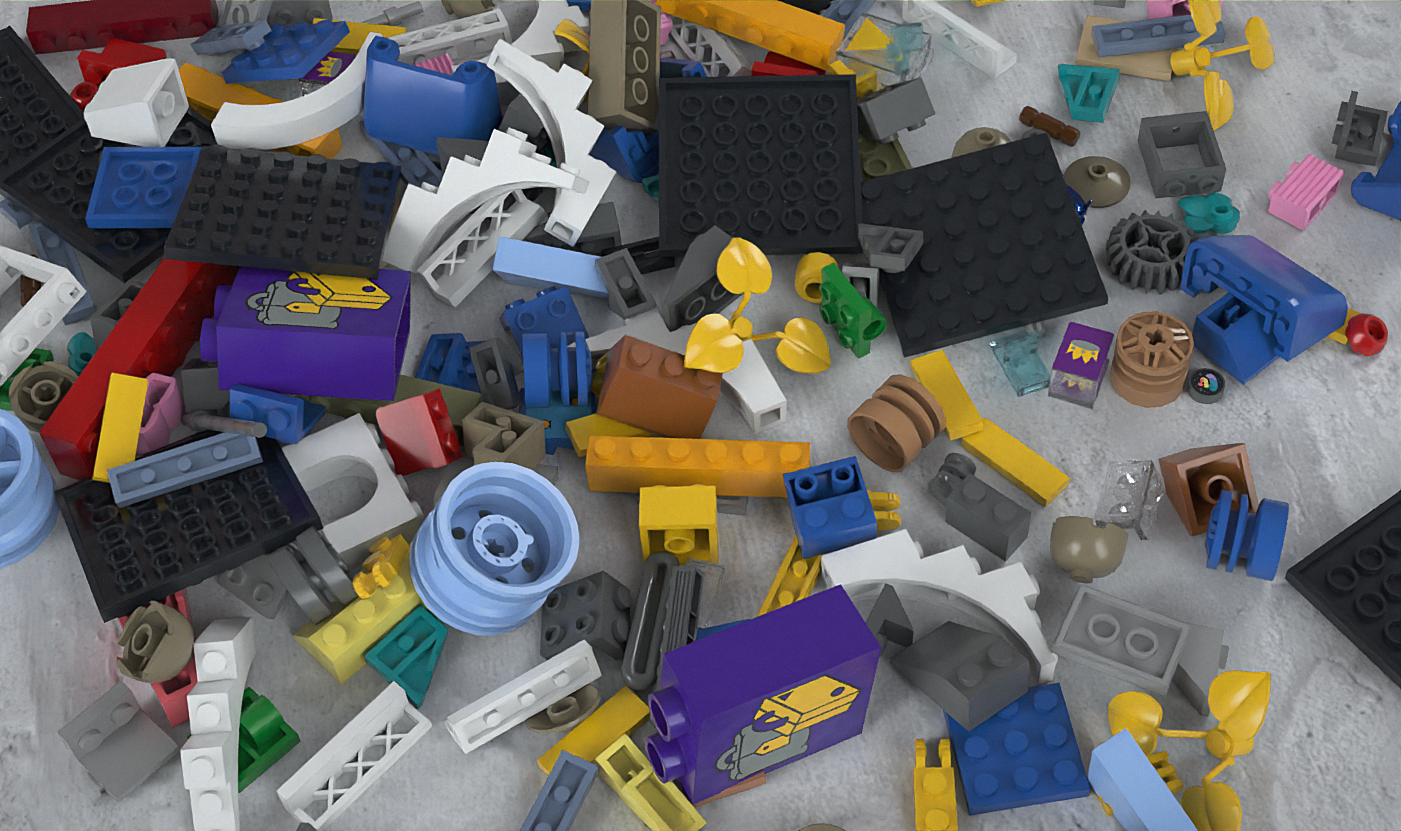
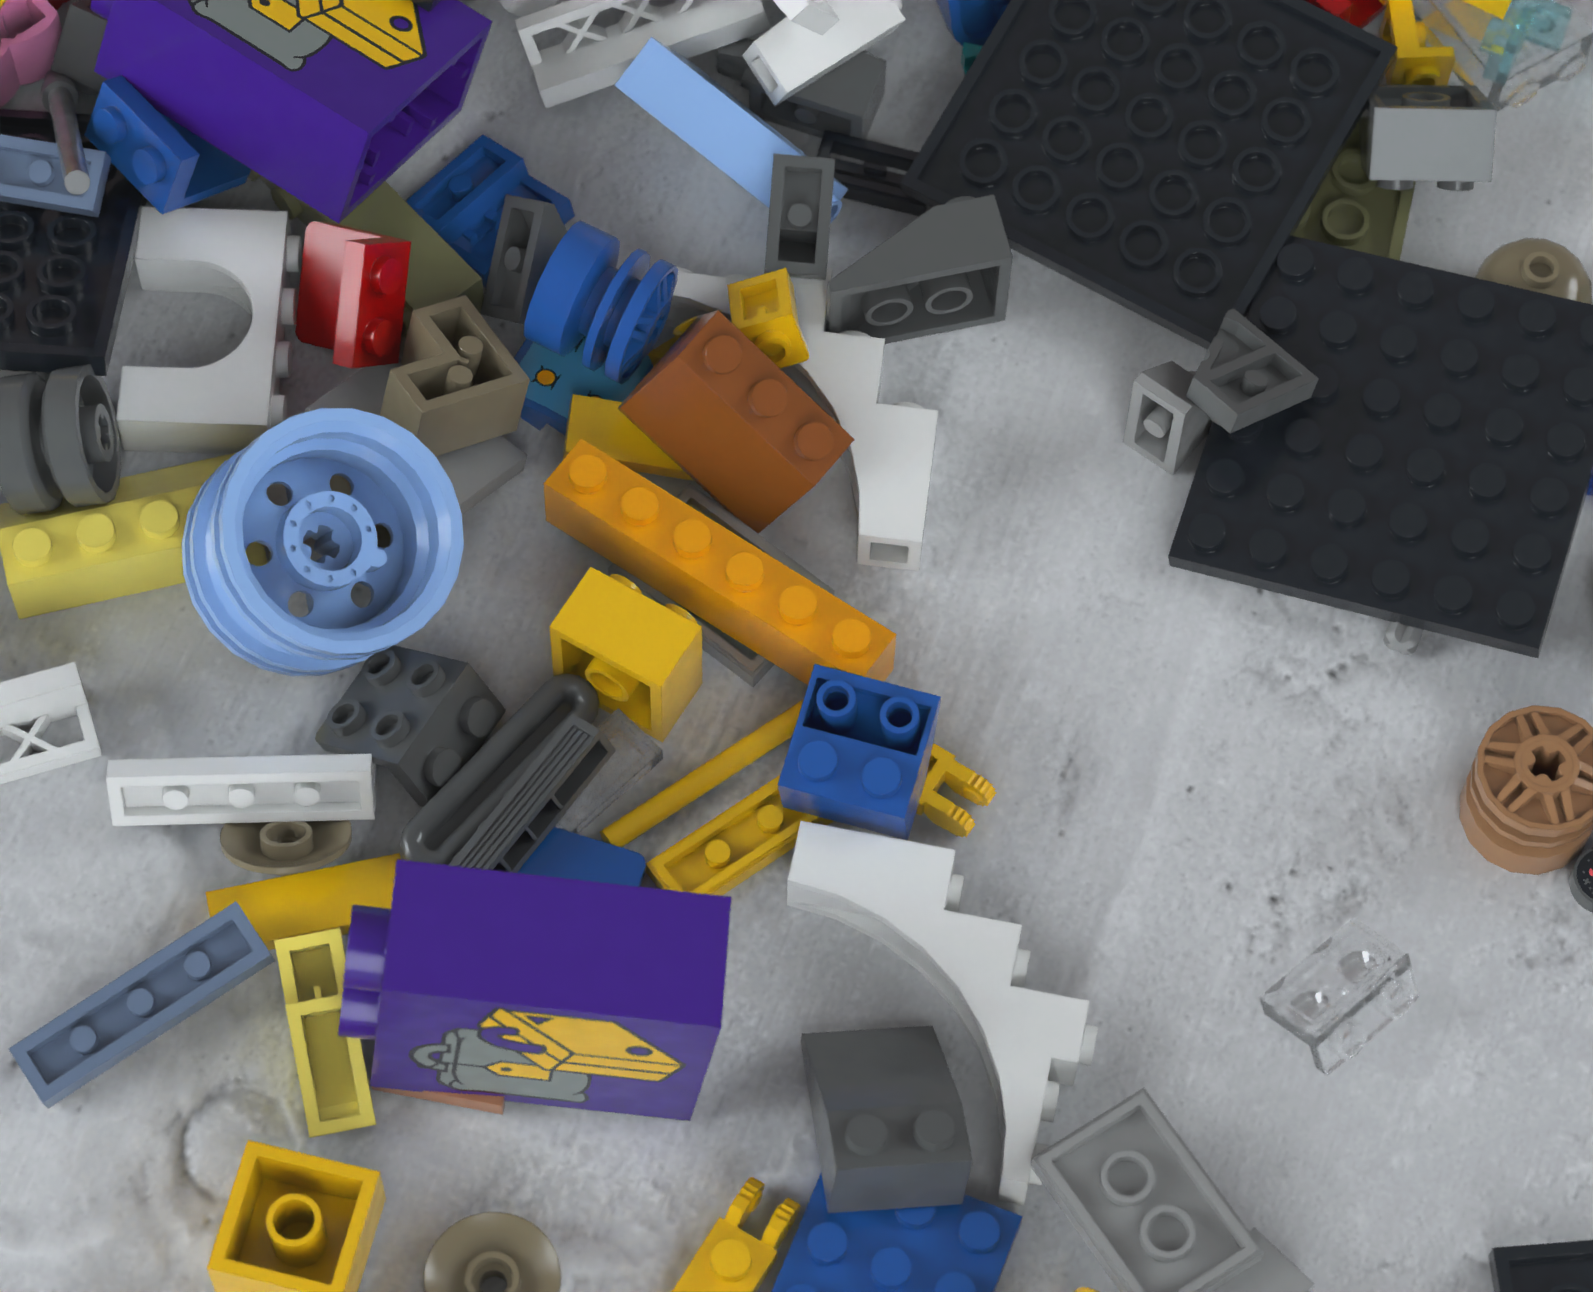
camera: 25 degrees right, 10 degrees up
(381, 565) = (160, 475): yellow hinge -> none
(410, 654) = (132, 633): teal wing -> none
(548, 313) = (658, 207): blue bracket -> none
(642, 328) = (768, 316): none -> yellow bracket
(717, 342) = (854, 390): yellow plant -> none
(755, 563) = (702, 779): none -> yellow bar
(809, 275) = (1115, 356): yellow head -> none
(849, 313) = (1125, 467): green plate -> none
(889, 620) = (829, 970): dark grey slope -> none
(896, 423) = (1074, 669): medium nougat wheel -> none
(941, 380) = (1181, 666): yellow tile -> none
(958, 465) = (1110, 798): dark grey bush -> none
(982, 513) = (1094, 888): dark grey hinge -> none
(1016, 462) = (1213, 834): yellow tile -> none
(1021, 362) = (1341, 677): clear light blue slope -> none
(1080, 365) = (1420, 735): piece -> none
(1087, 549) = (1203, 1039): dark tan cylinder -> none
(1198, 477) = (1477, 1048): dark orange slope -> none
(1247, 535) = (1461, 1158): blue wheel -> none

